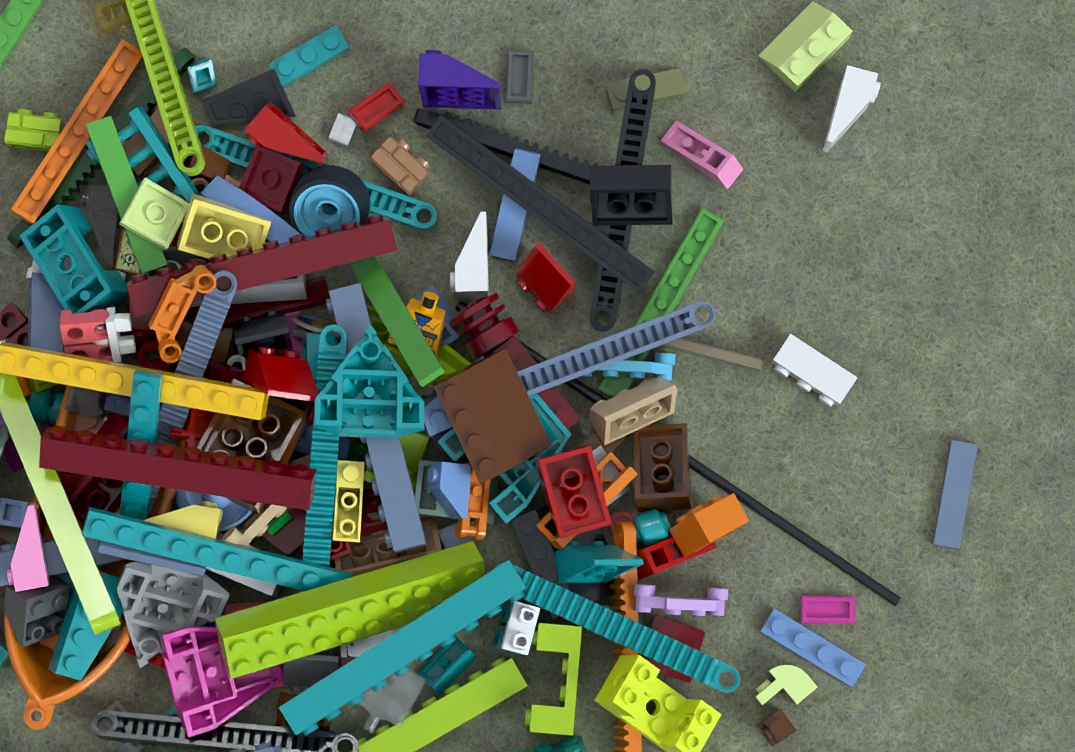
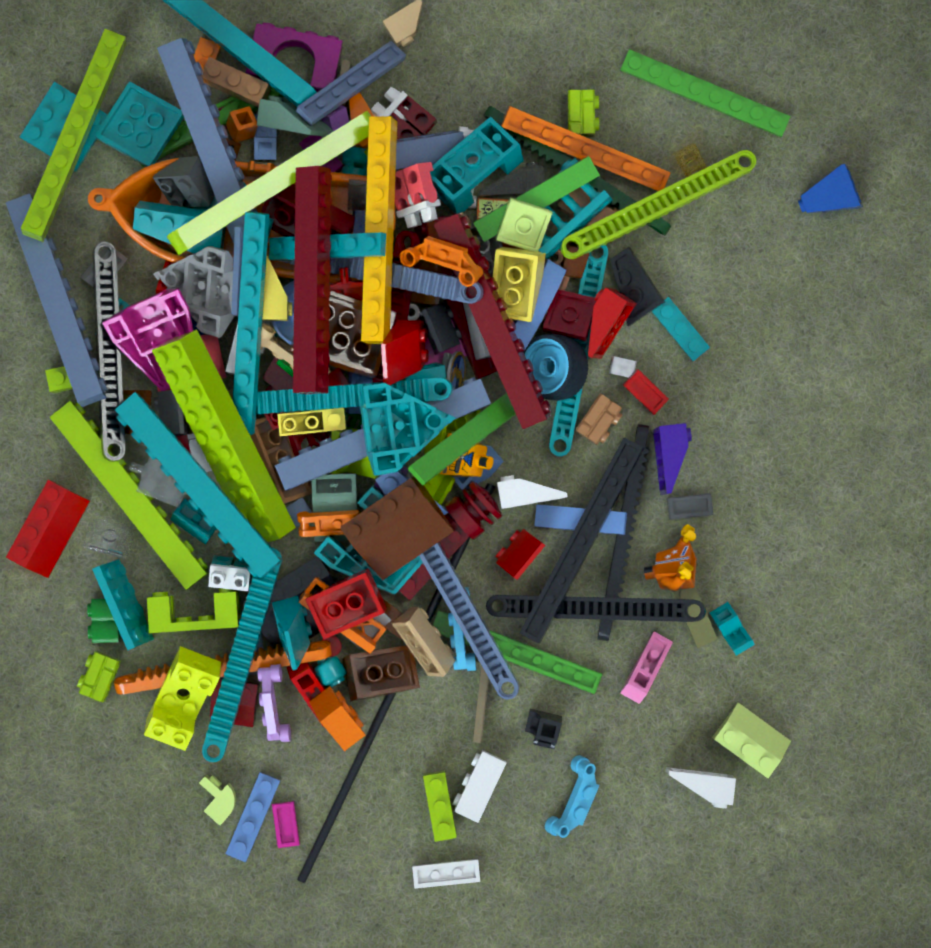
camera: 75 degrees right, 5 degrees up
(29, 561) = (219, 171): bright pink slope -> none
(201, 75) = (650, 242): teal slope -> none
(450, 487) = (336, 503): medium blue slope -> none
(586, 100) = (676, 566): none -> orange torso
(631, 195) = (599, 615): black slope -> none
(670, 49) = (731, 628): none -> teal slope
(755, 283) = (544, 727): none -> black brick
(776, 727) = (183, 796): reddish brown brick -> none
(830, 421) = (439, 805): none -> lime brick
(847, 256) = (579, 800): none -> medium azure plate
(912, 426) = (446, 873): none -> white plate
(955, 494) = (395, 916): sand blue tile -> none

